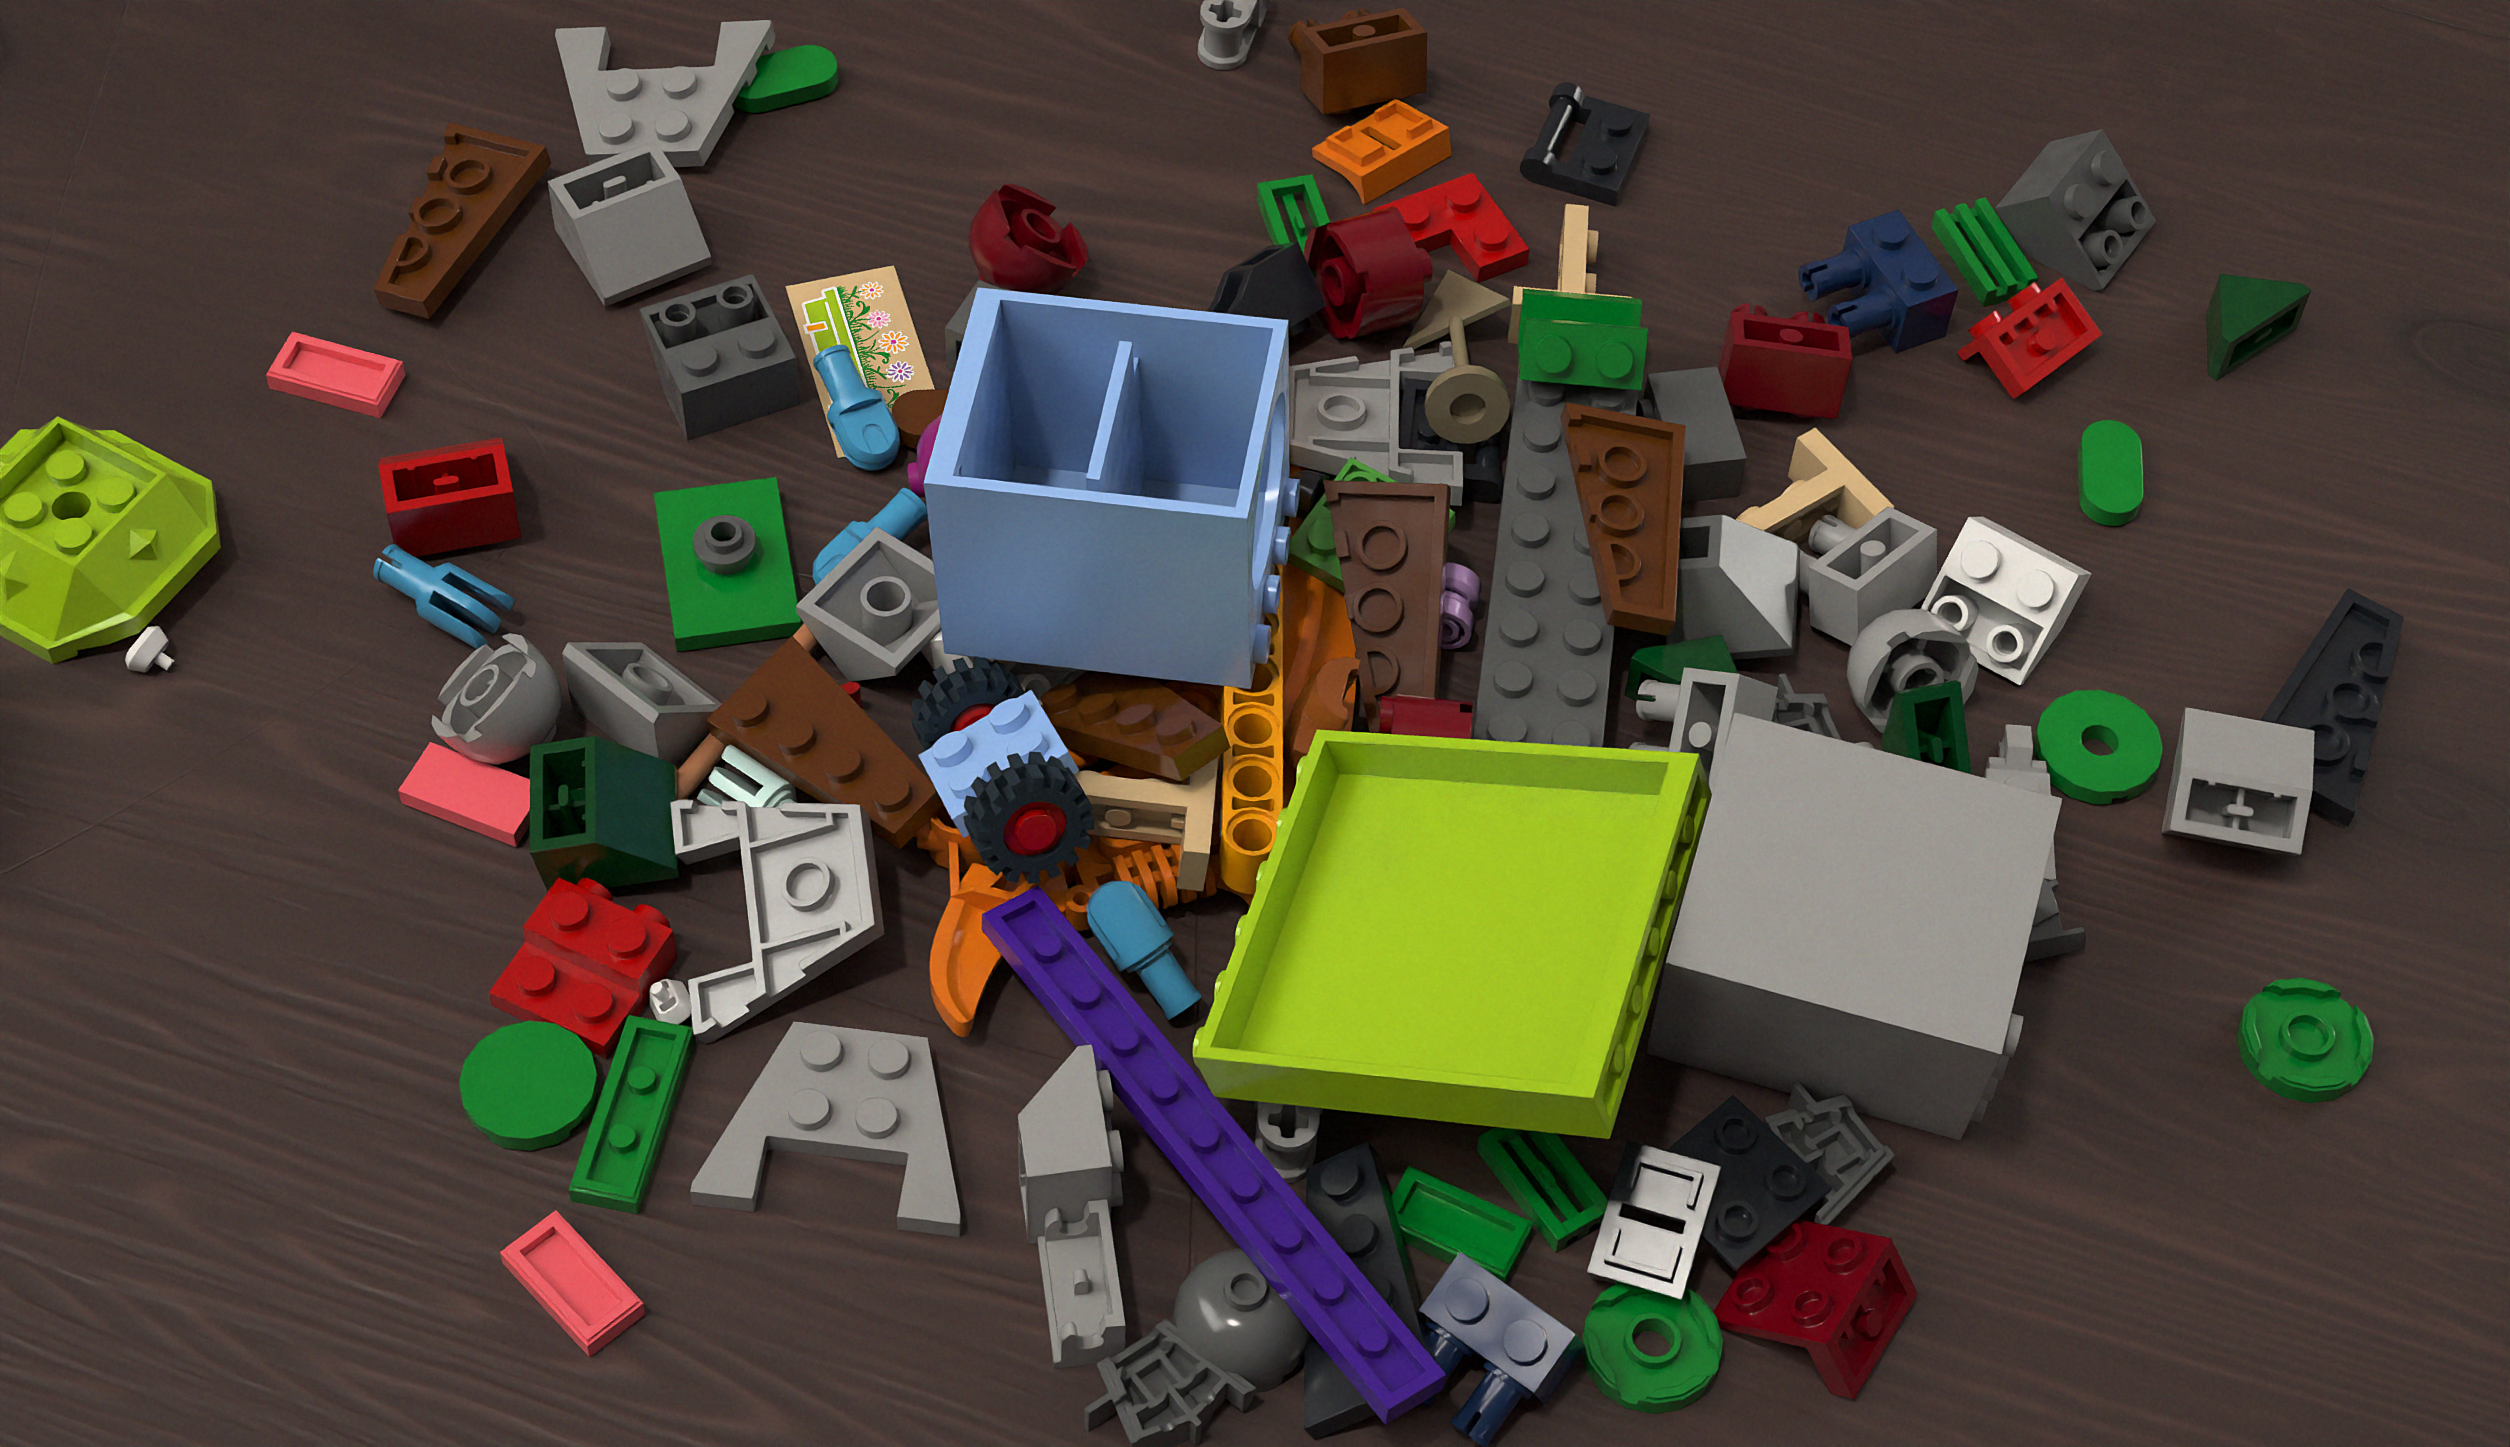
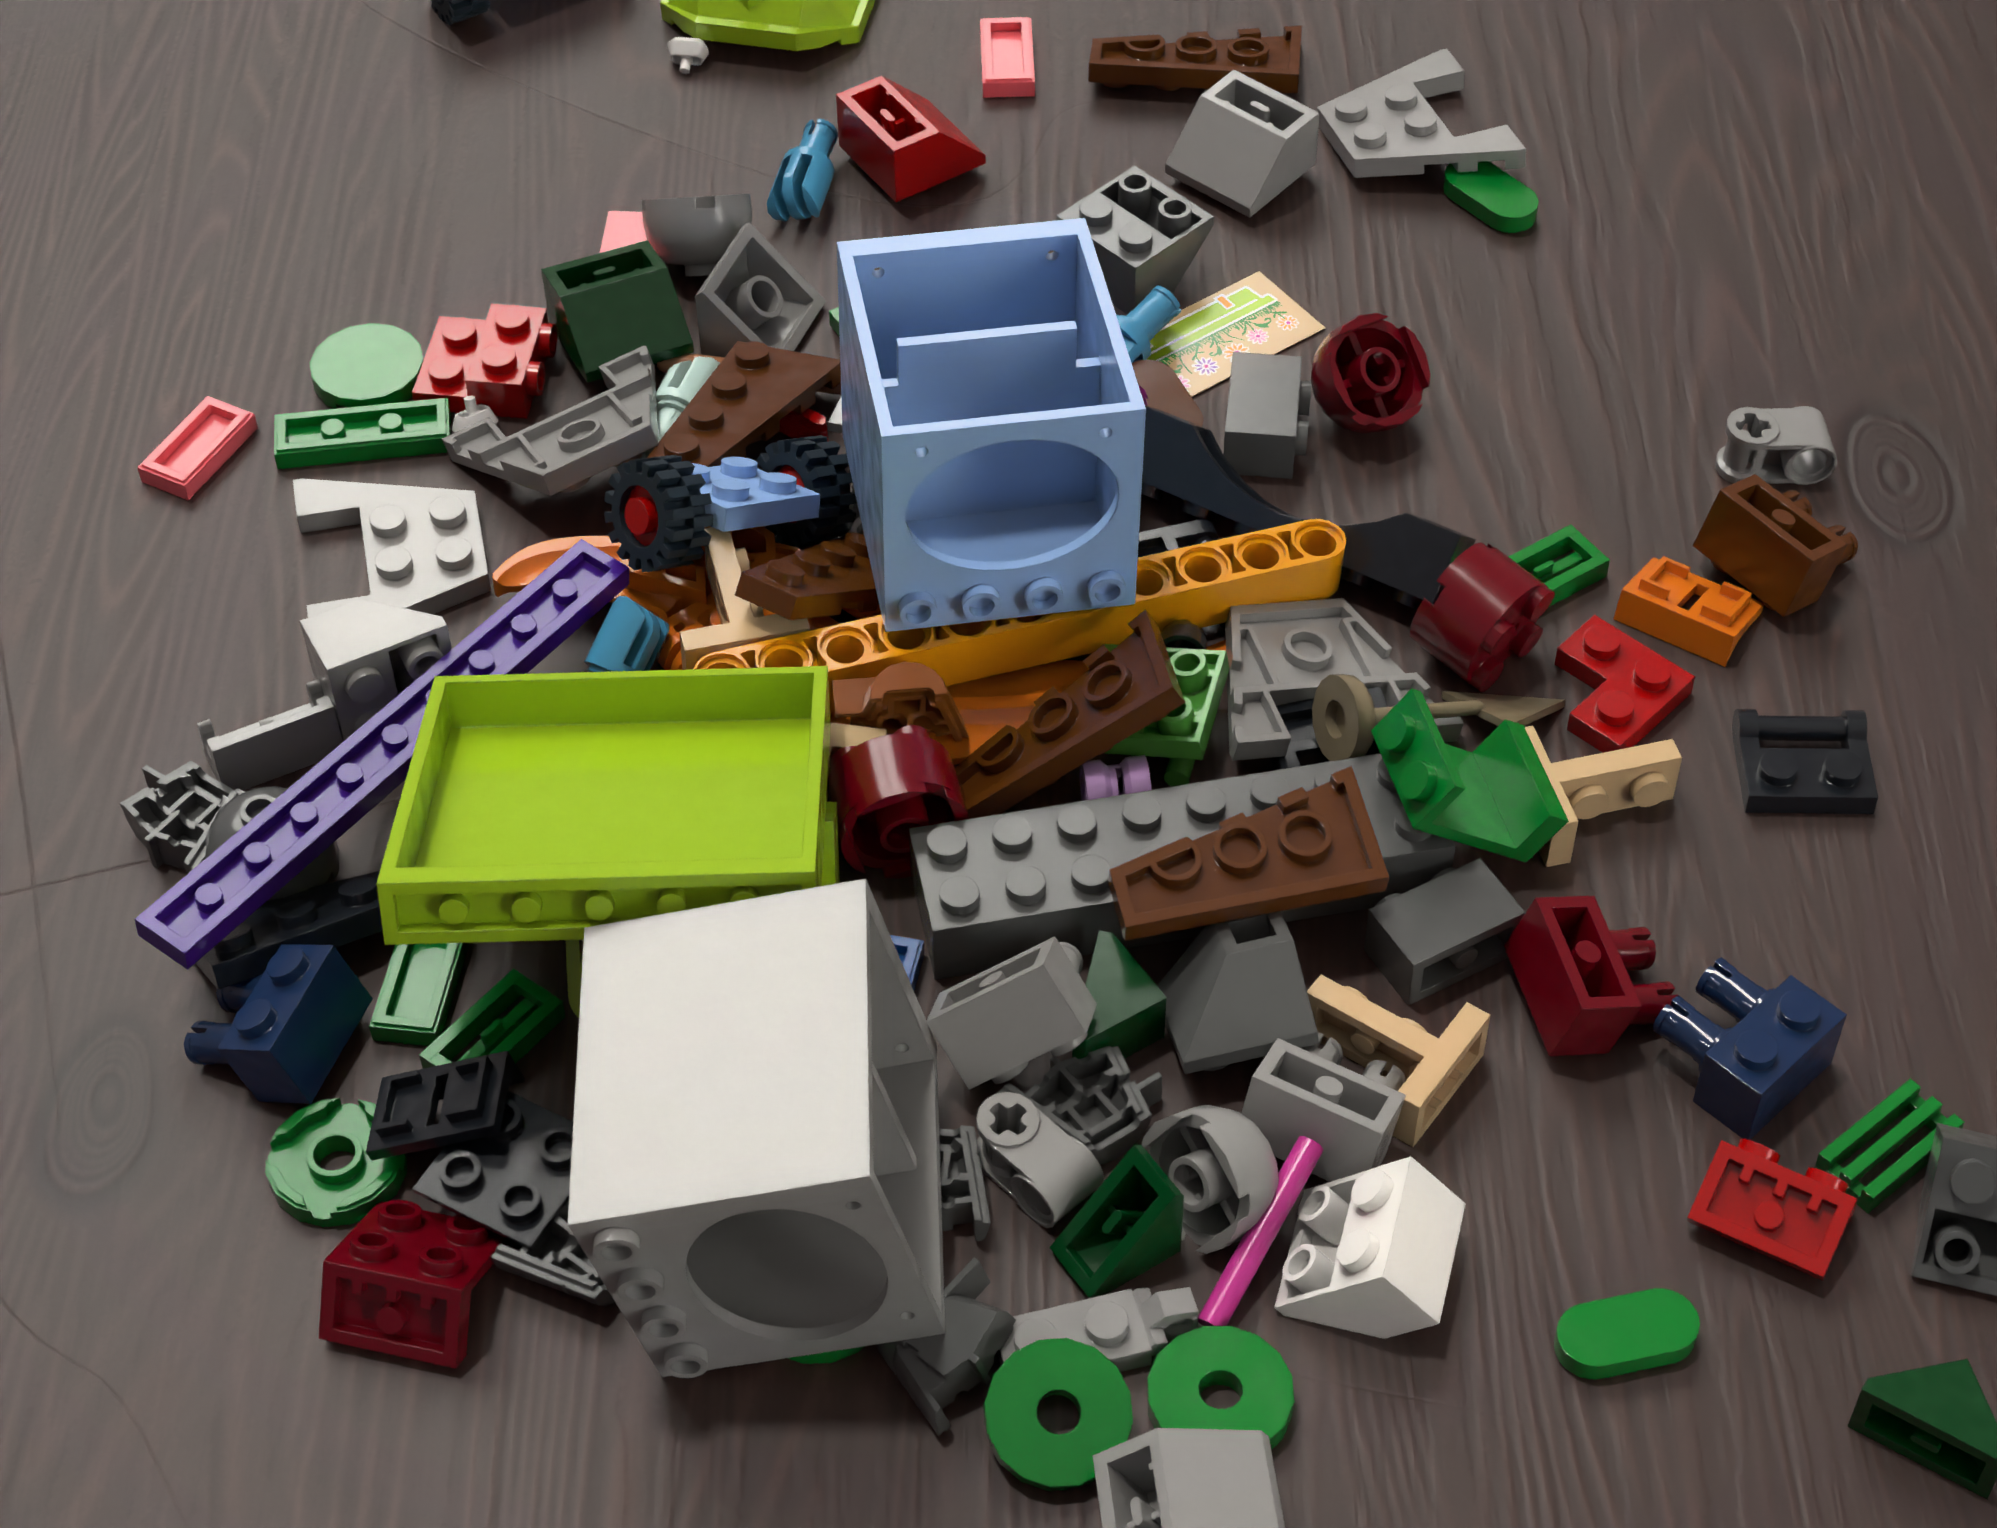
camera: 75 degrees right, 5 degrees down
(1987, 682) = (1260, 1237): none -> dark pink bar
(2122, 836) = (1045, 1370): none -> green tile

